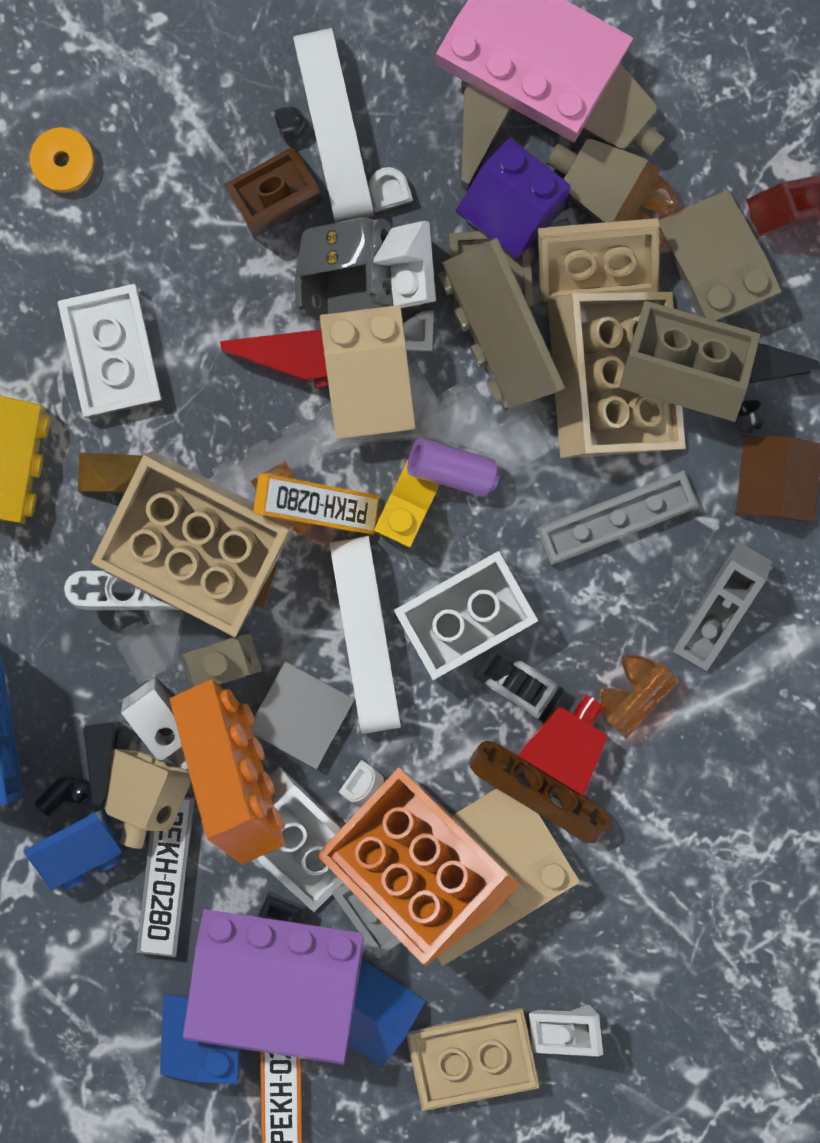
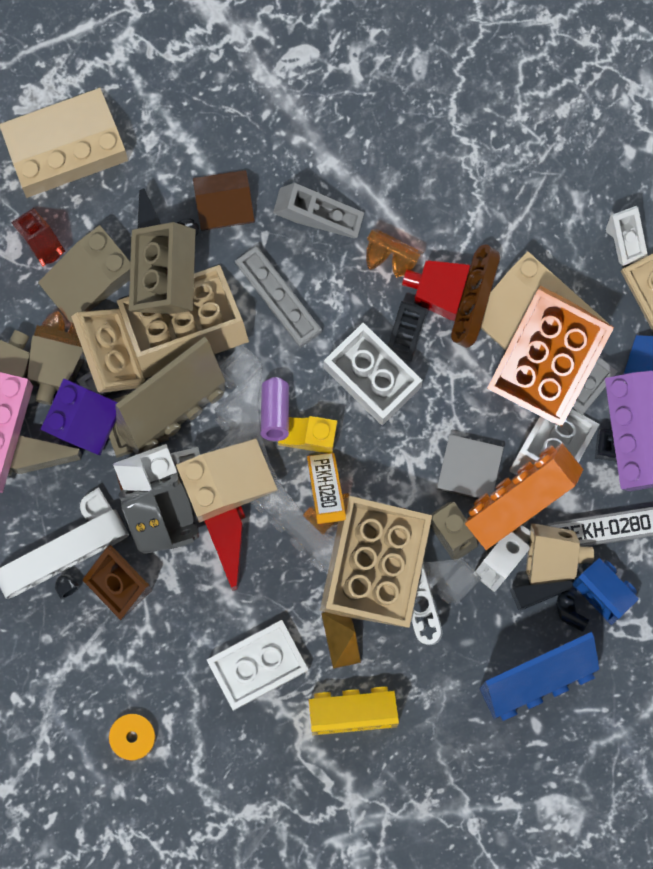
camera: 105 degrees left, 10 degrees down
(361, 784) = (505, 413): white tile -> none
(365, 635) = (403, 438): white beam -> none

